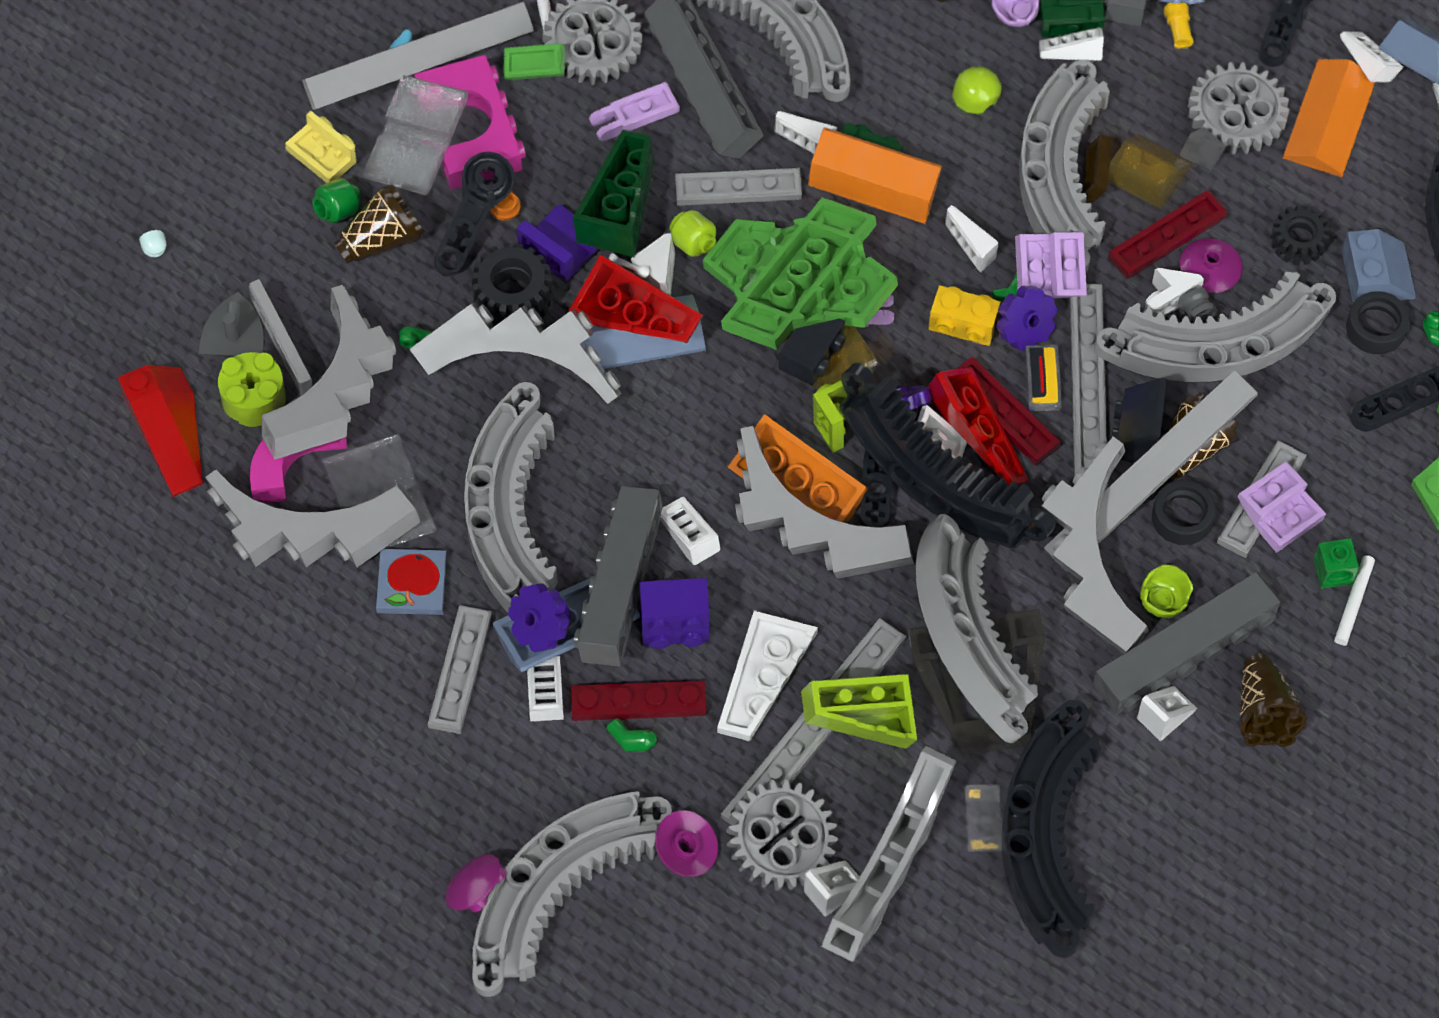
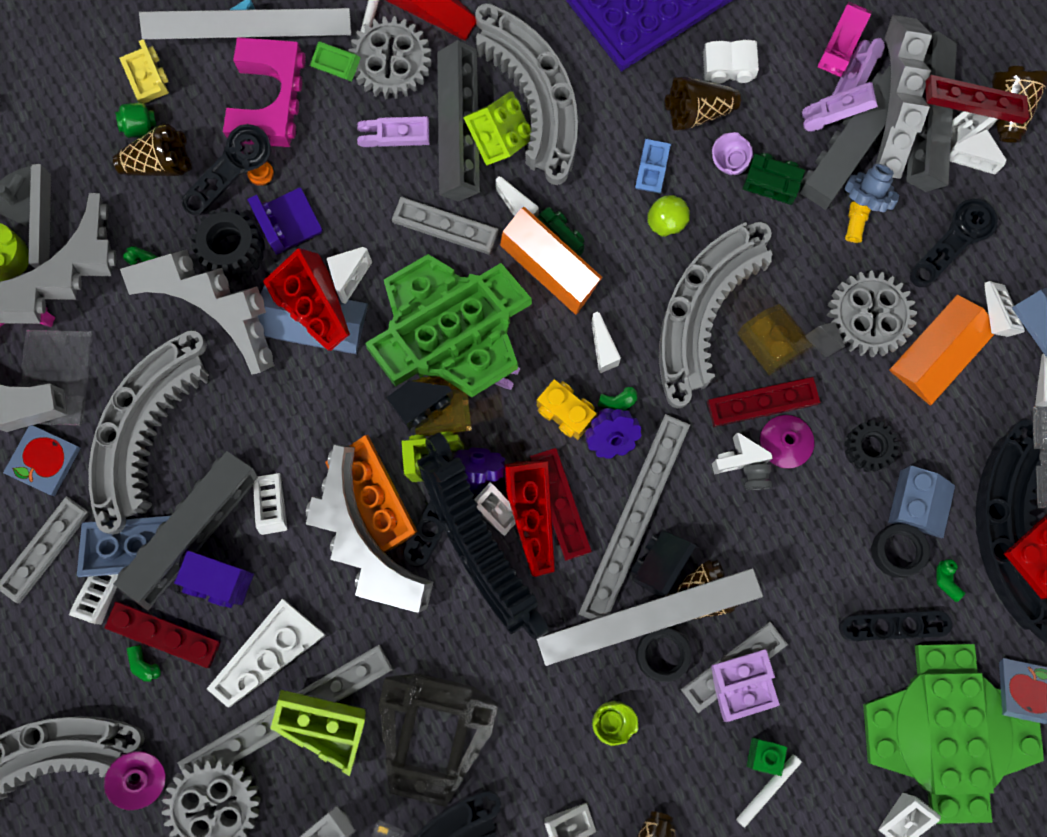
camera: 25 degrees right, 15 degrees up
(416, 134) = (216, 90): clear piece -> none
(539, 617) = (105, 544): dark purple plant -> none
(617, 198) = (340, 201): dark green wedge -> none
(642, 271) = (327, 274): white hinge -> none
(693, 233) = (387, 253): lime head -> none
(754, 65) = (499, 128): none -> lime bracket
(934, 46) = (652, 166): none -> medium blue slope
(962, 634) = (423, 734): light grey gear -> none
(1043, 377) = (605, 488): slope -> none
(1052, 263) = (654, 395): lavender slope -> none
(1074, 46) = (762, 208): white slope -> none
(1078, 510) = (554, 707): light grey arch -> none
(1096, 168) = (731, 322): dark brown tile -> none
(1178, 349) = (807, 519): light grey gear -> none
(1187, 643) = (612, 775): dark grey brick -> none

